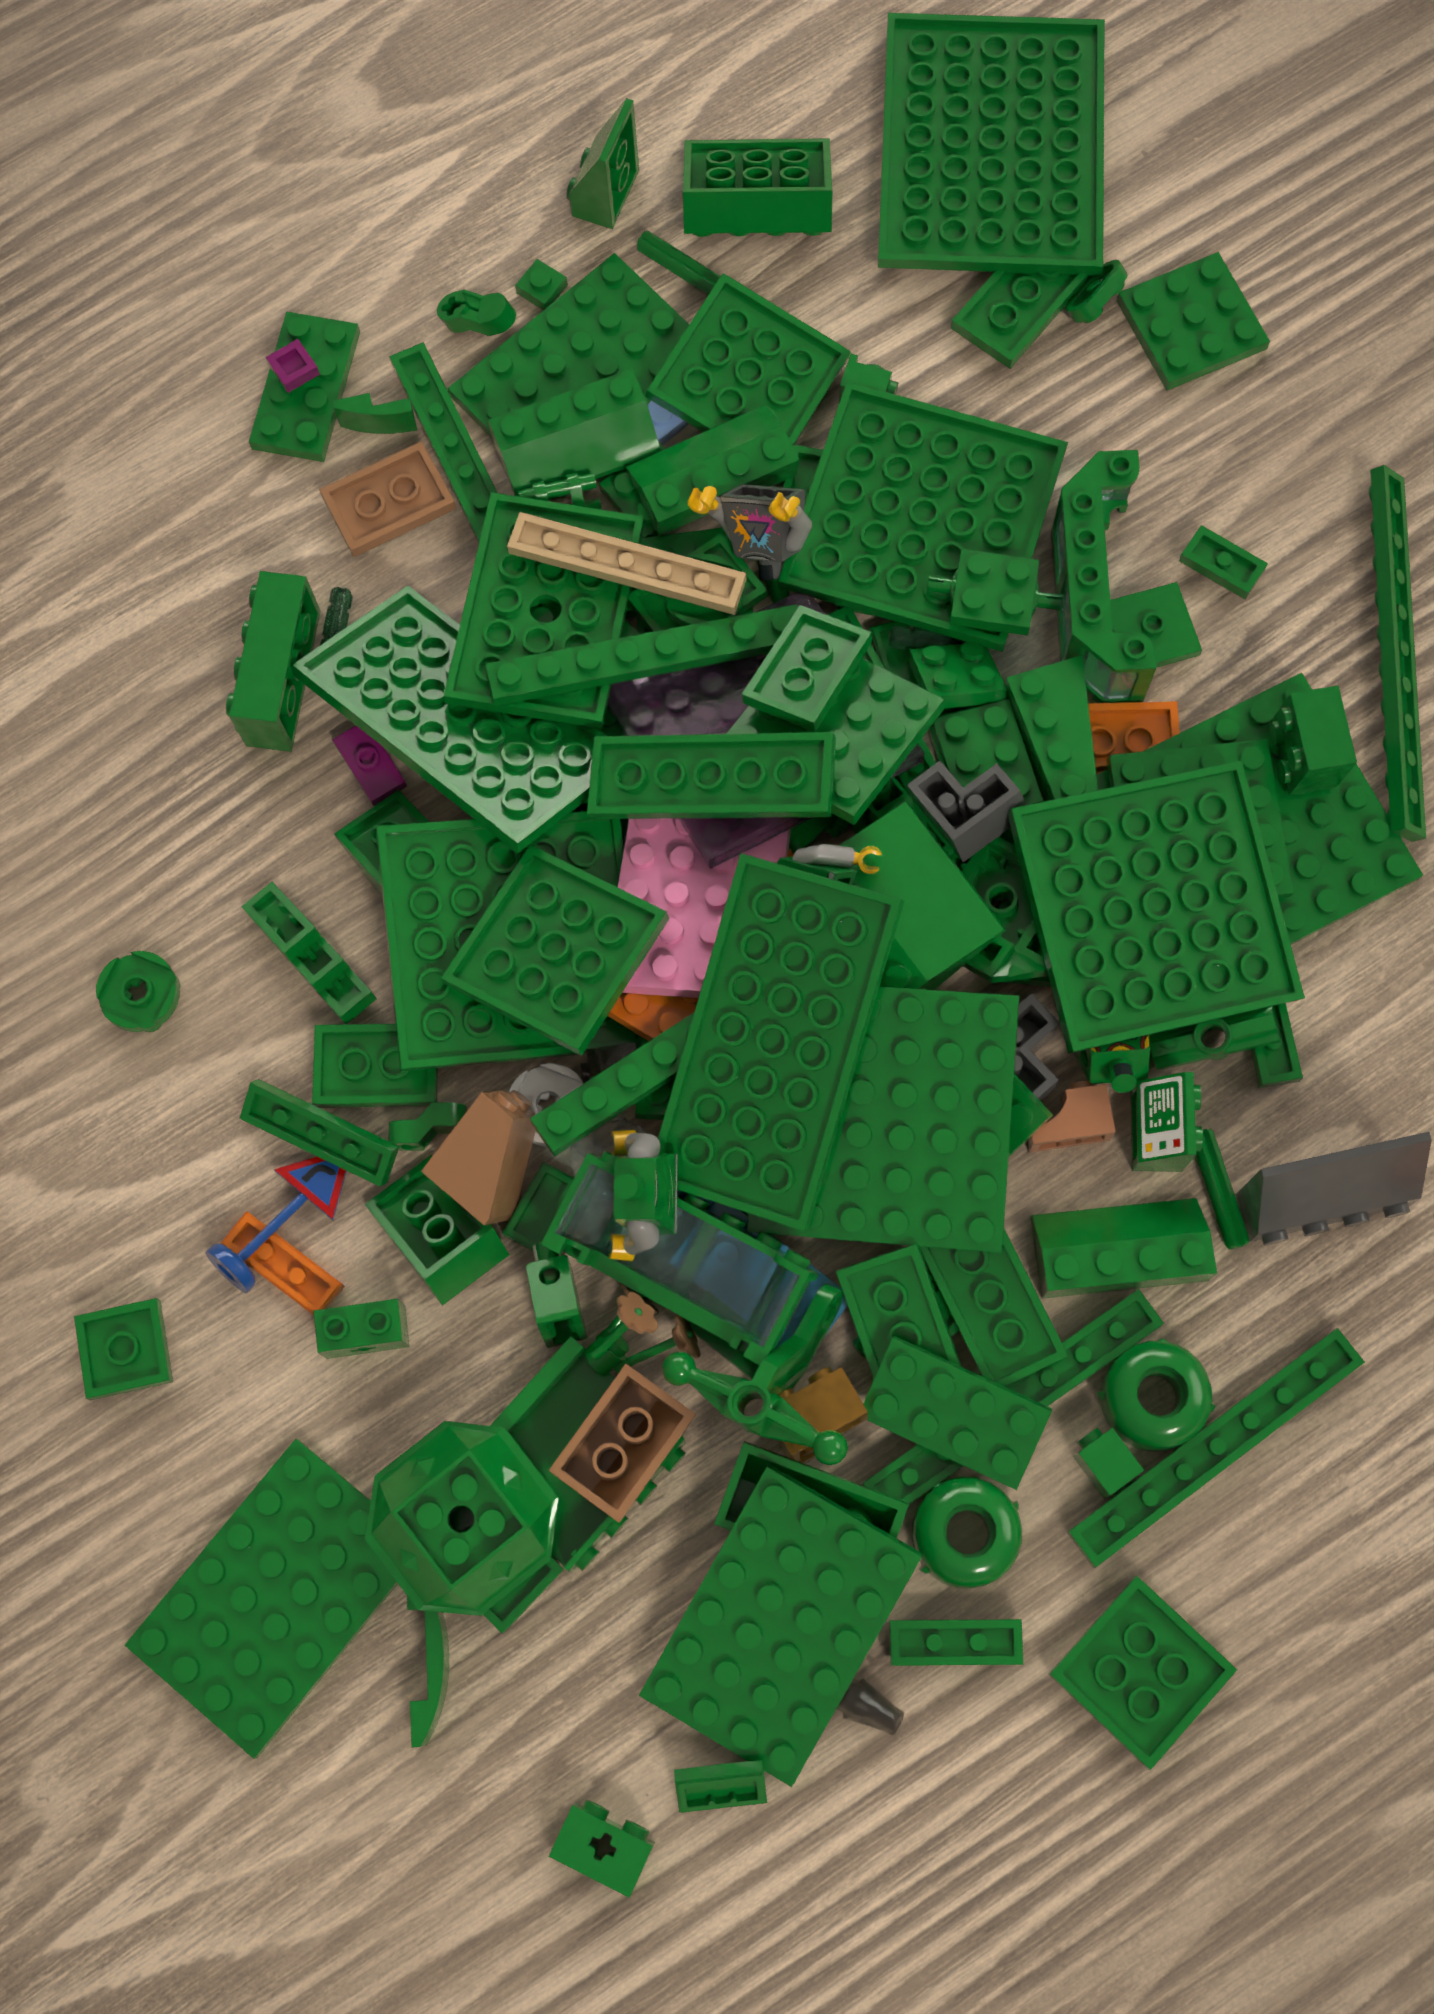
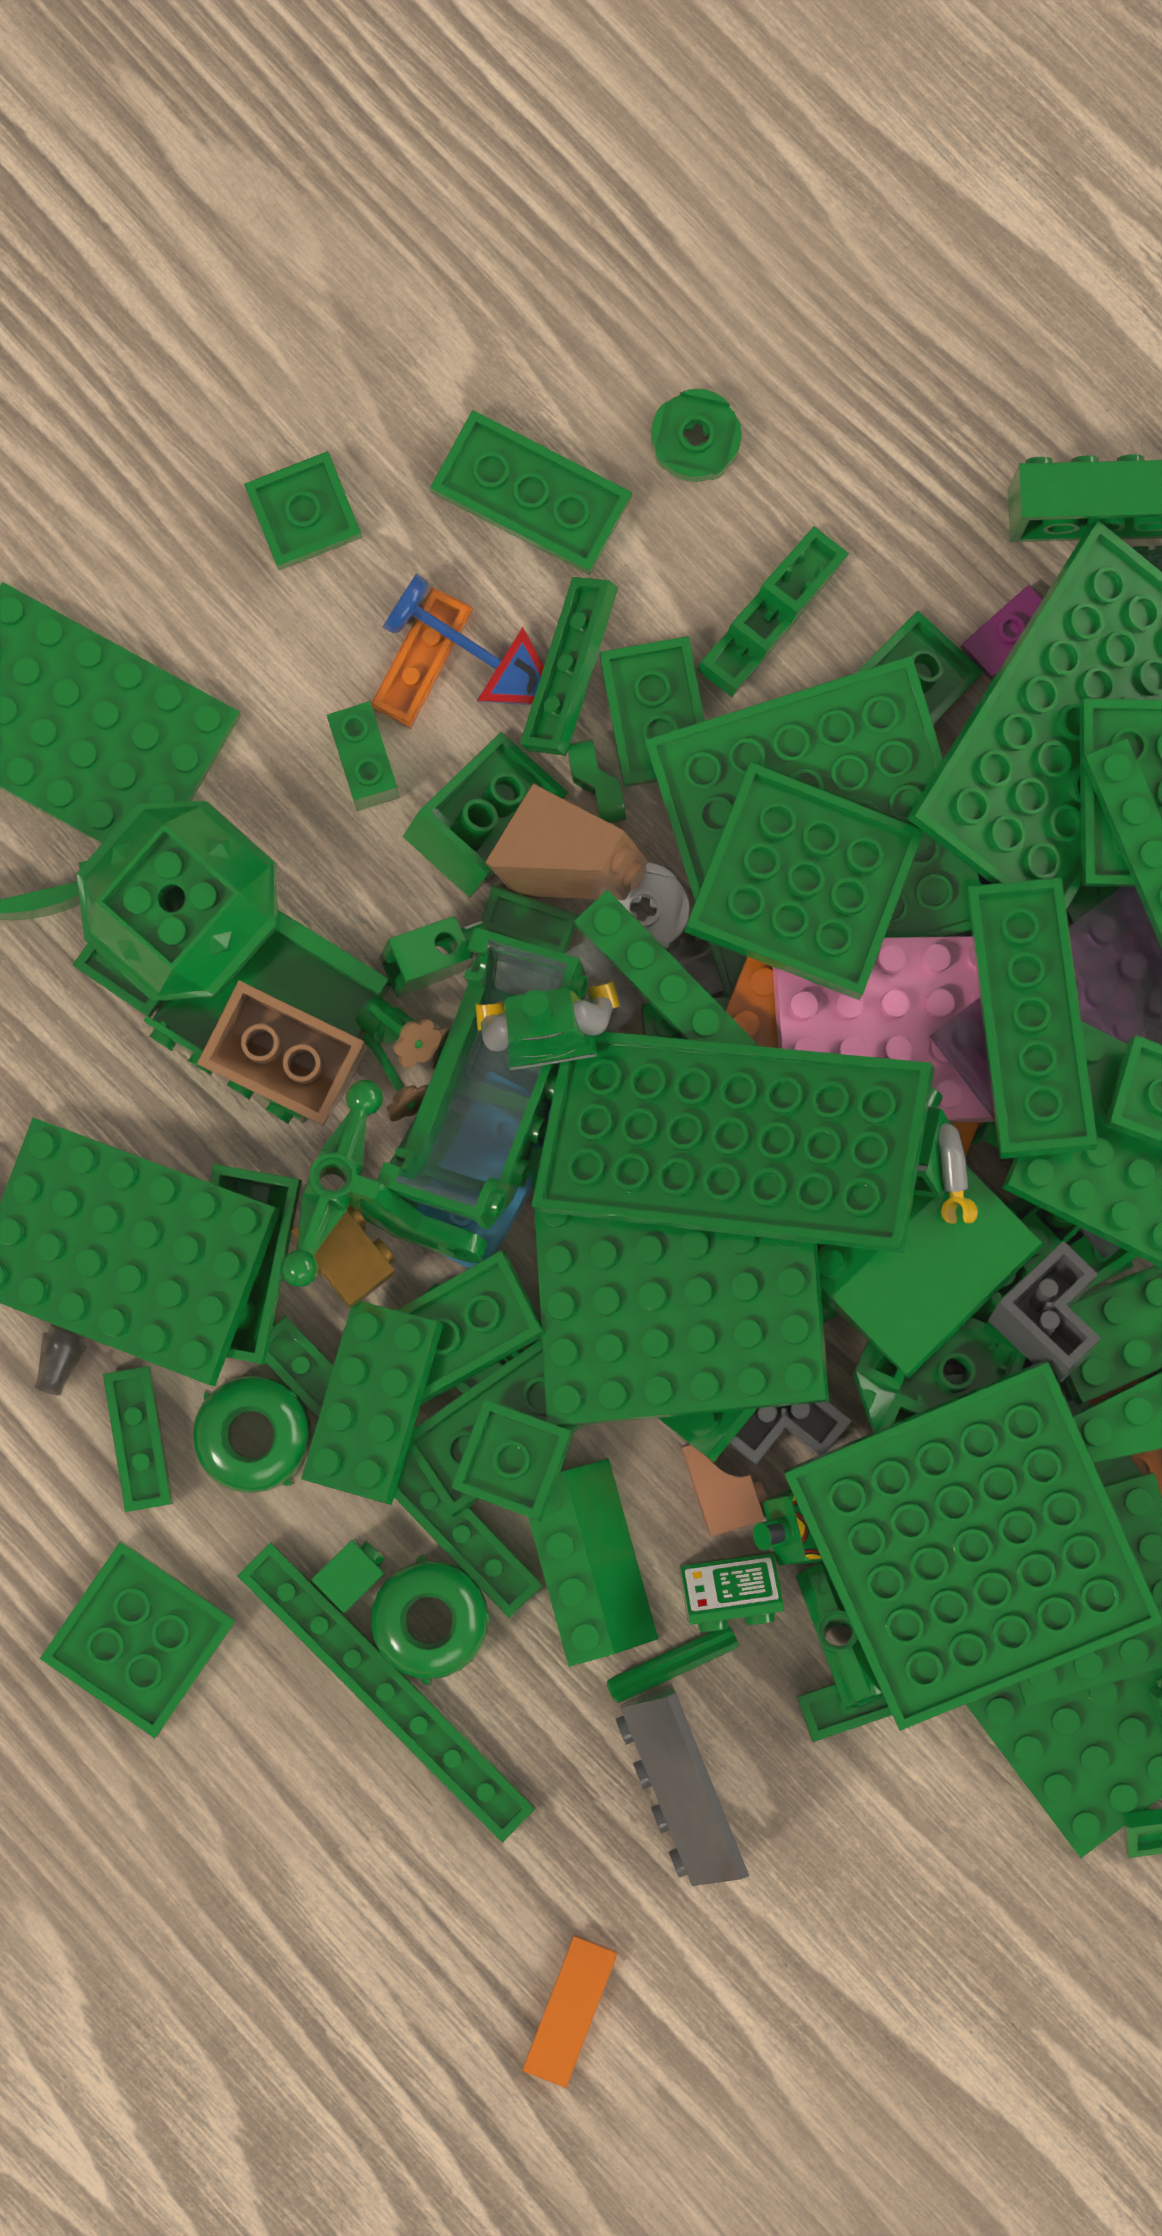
camera: 75 degrees right, 10 degrees up
(154, 1142) = (531, 492): none -> green plate
(1028, 1289) = (512, 1460): none -> green plate

